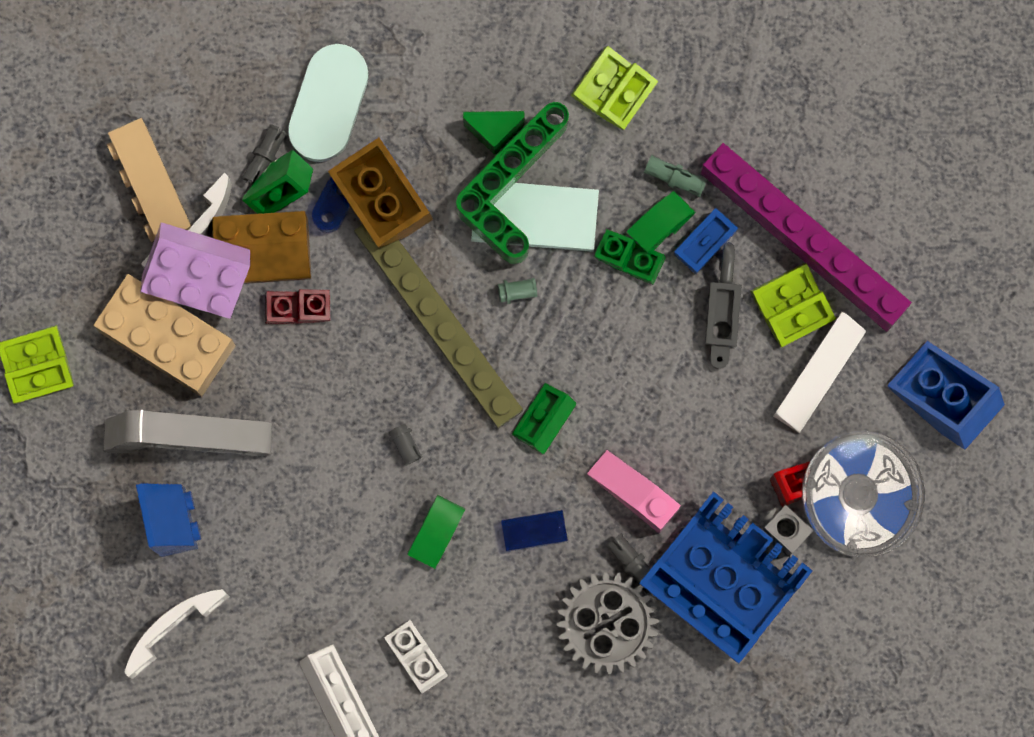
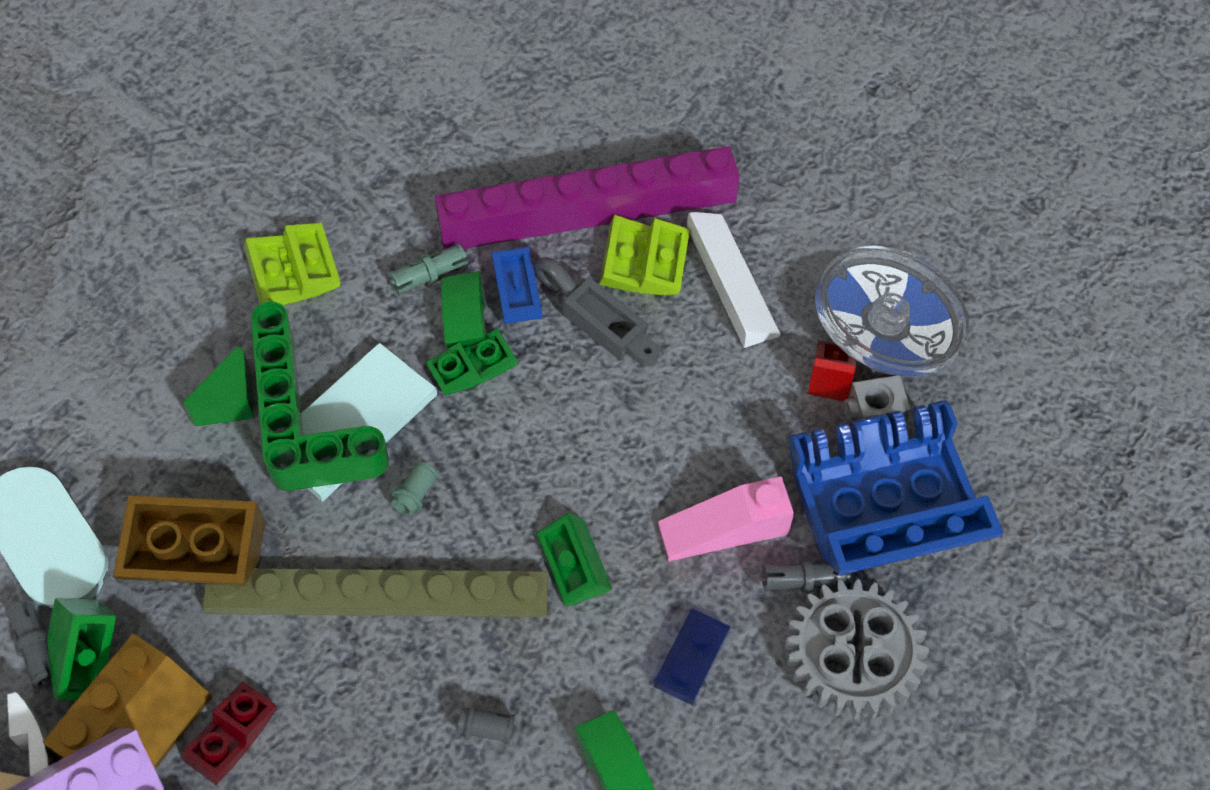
camera: 55 degrees left, 20 degrees down
(330, 203) = (154, 610): clear blue plate -> none
(947, 394) = (840, 184): blue slope -> none

